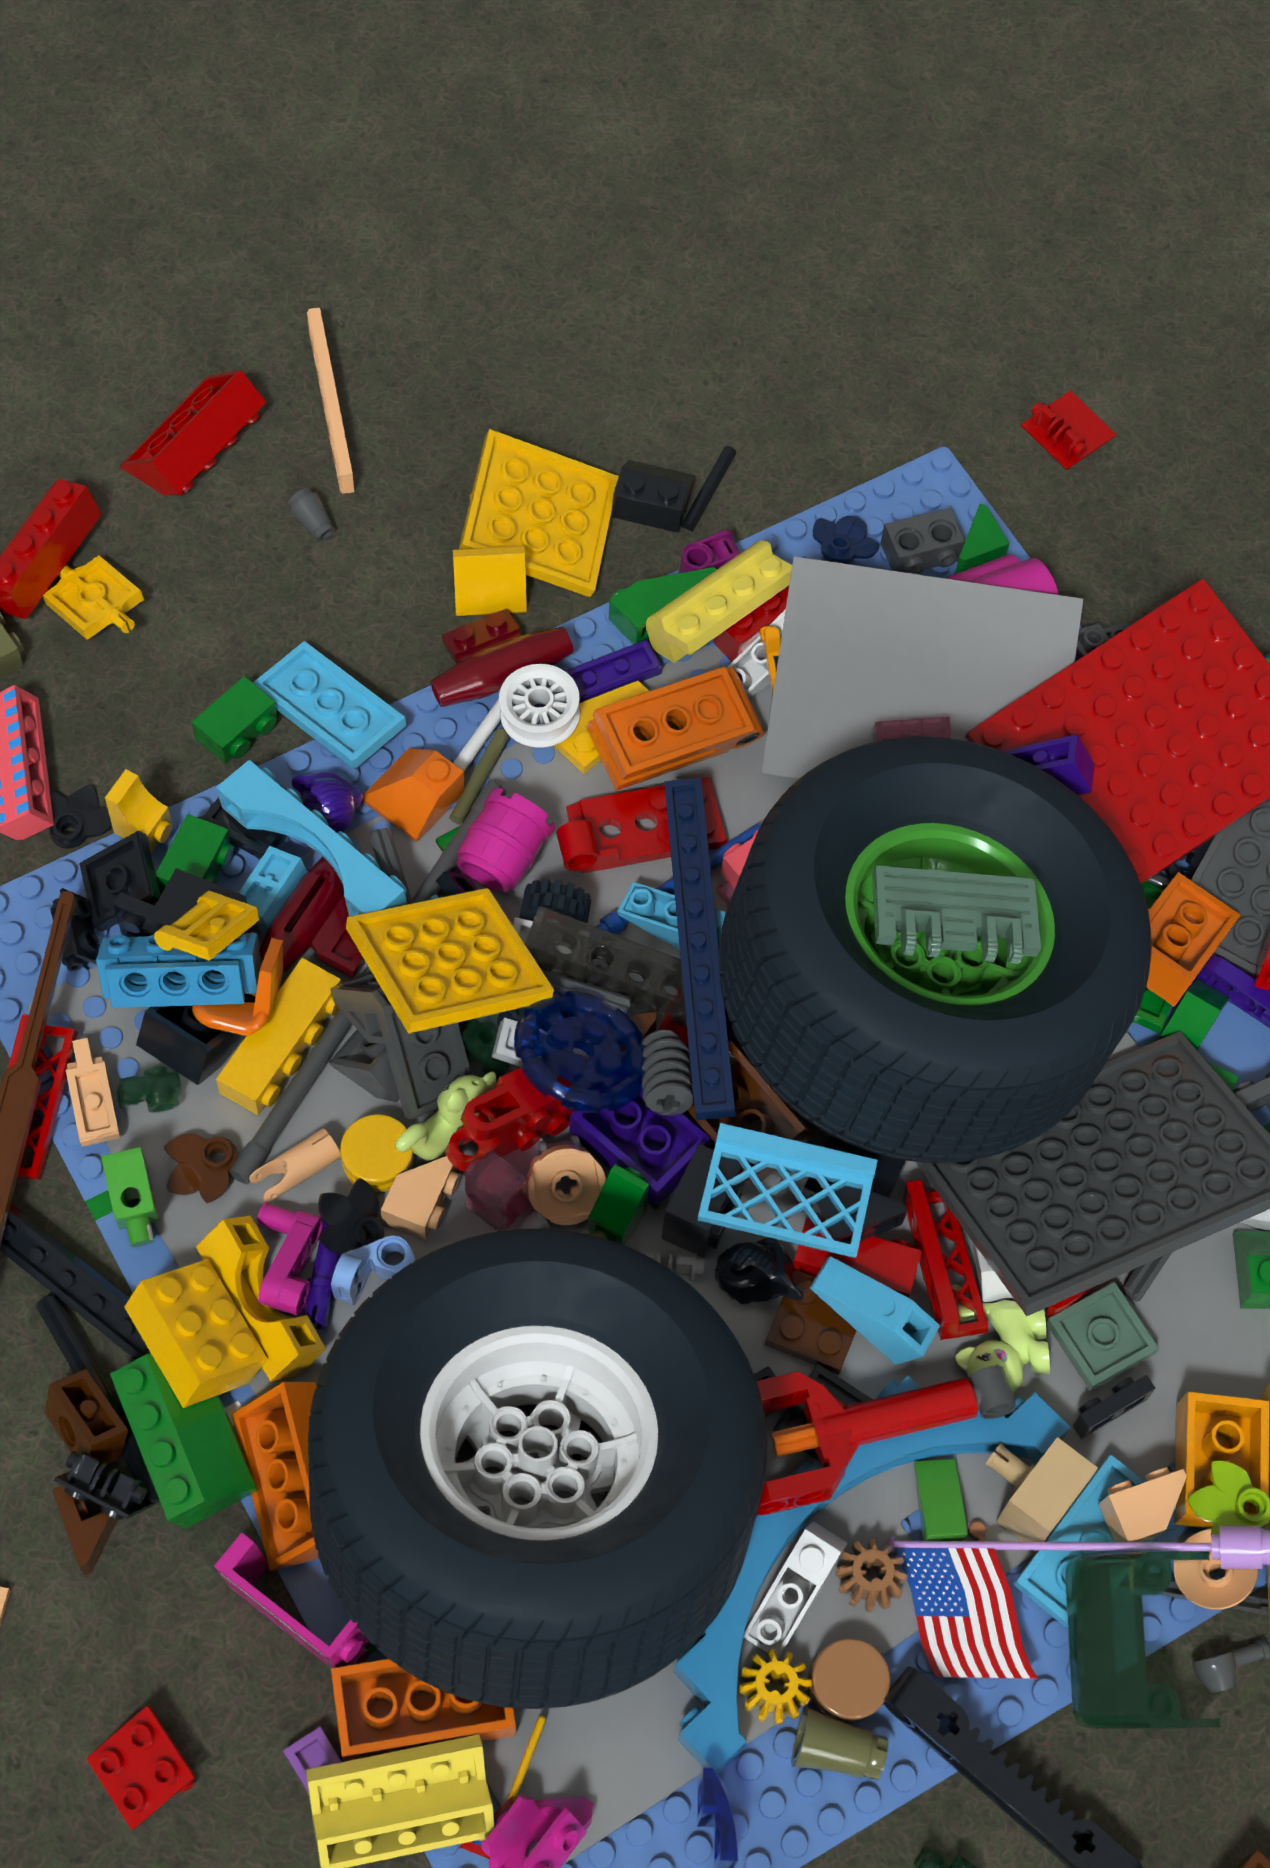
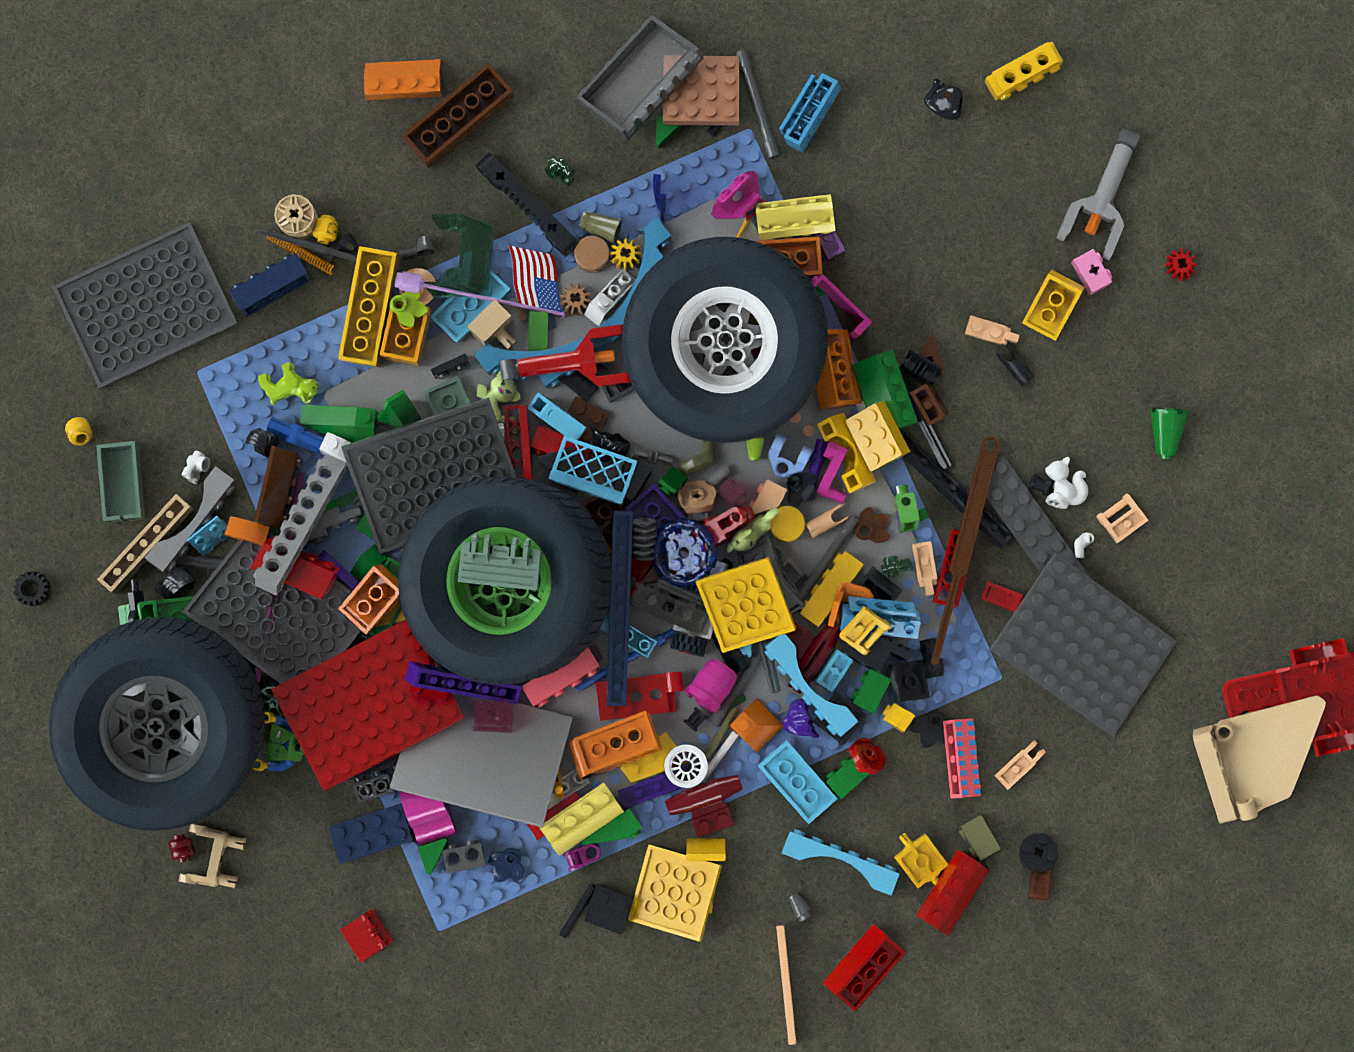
camera: 165 degrees left, 20 degrees up
(141, 1767) = (906, 250): red hinge -> none
(213, 743) = (867, 757): none -> red plate
(309, 603) = (878, 877): none -> medium azure arch
(532, 784) = (695, 719): none -> black bush
(1105, 563) = (371, 833): none -> dark blue brick
(1143, 1509) = (447, 312): light nougat slope -> none
(1195, 1291) = (398, 411): none -> green wedge

